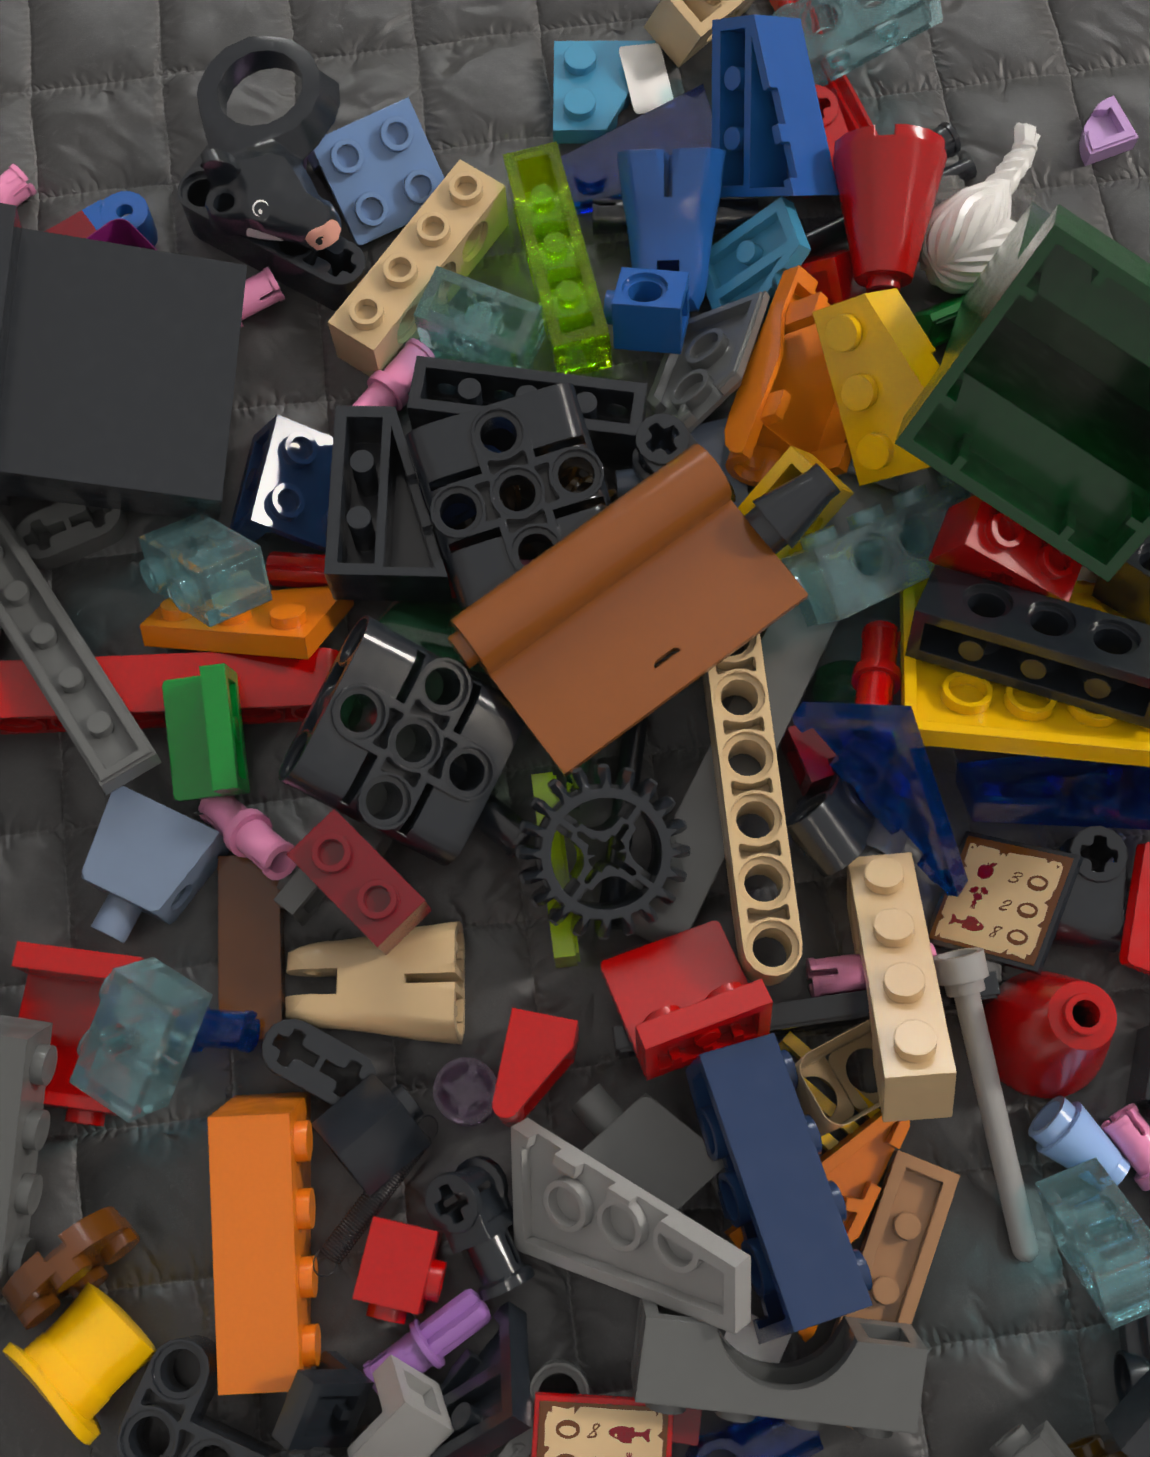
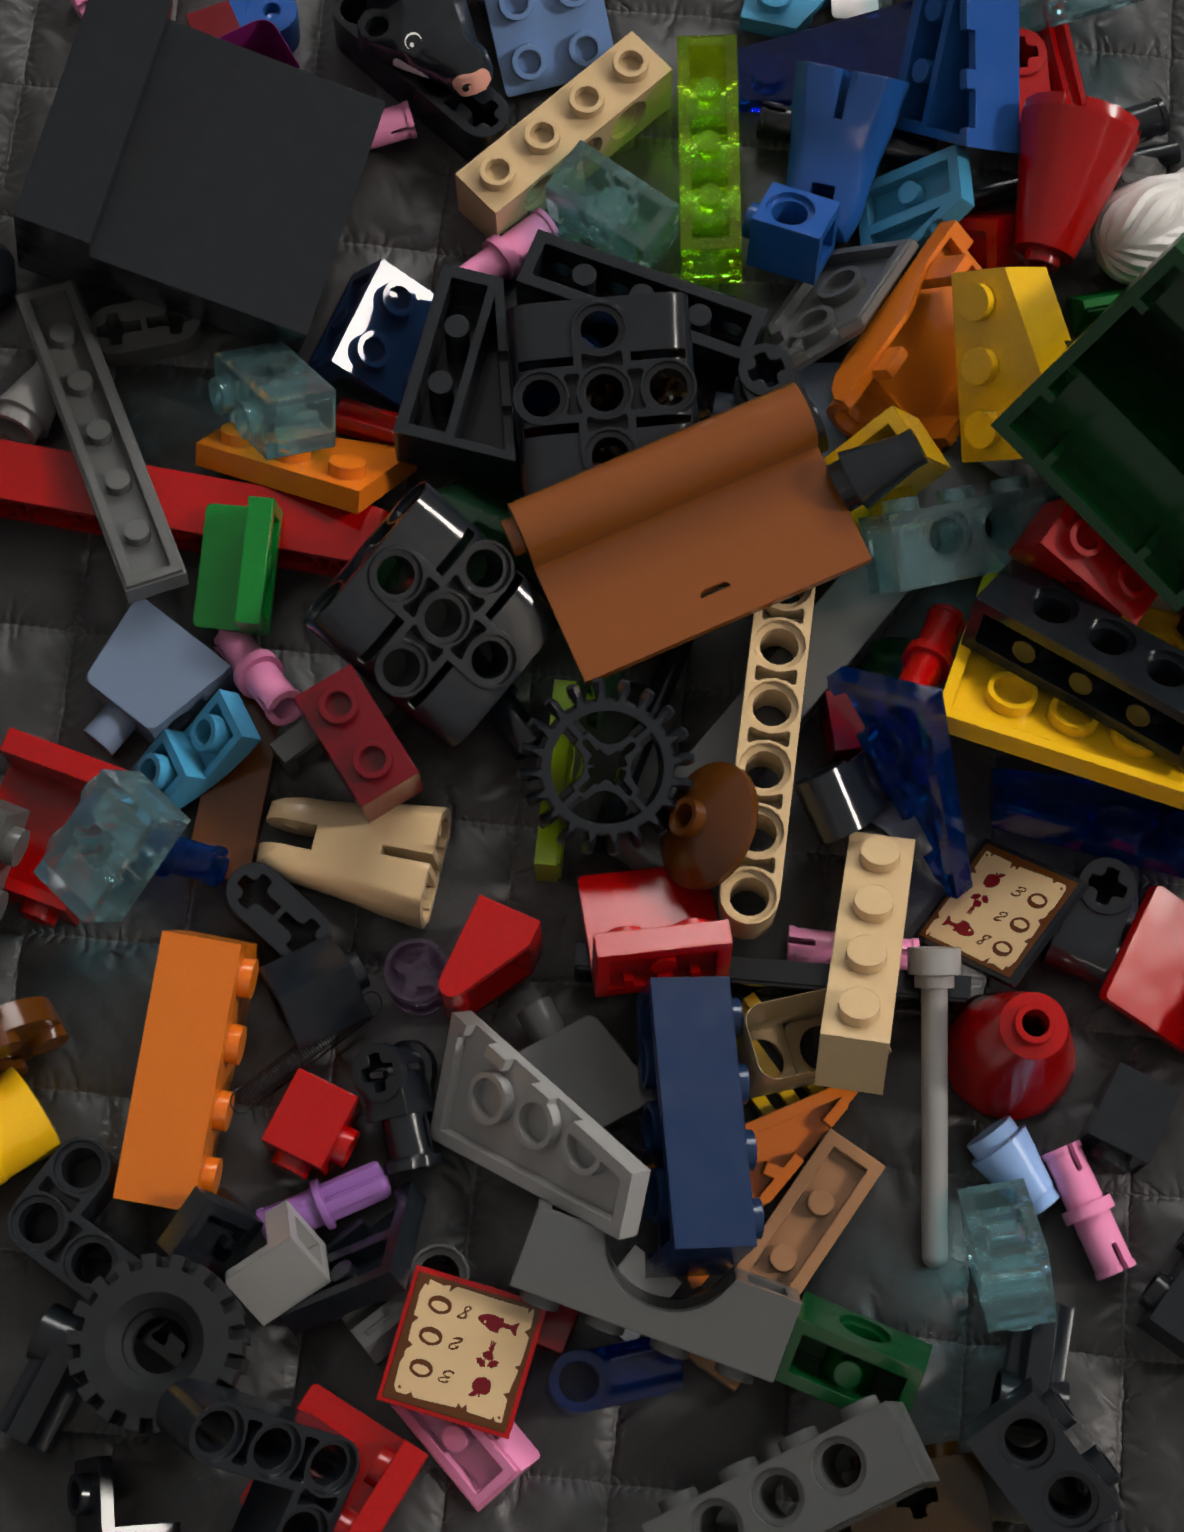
camera: 10 degrees right, 0 degrees up
(202, 932) = (202, 755): none -> dark azure slope
(718, 887) = (710, 826): none -> reddish brown dish
(986, 1381) = (850, 1356): none -> dark green brick

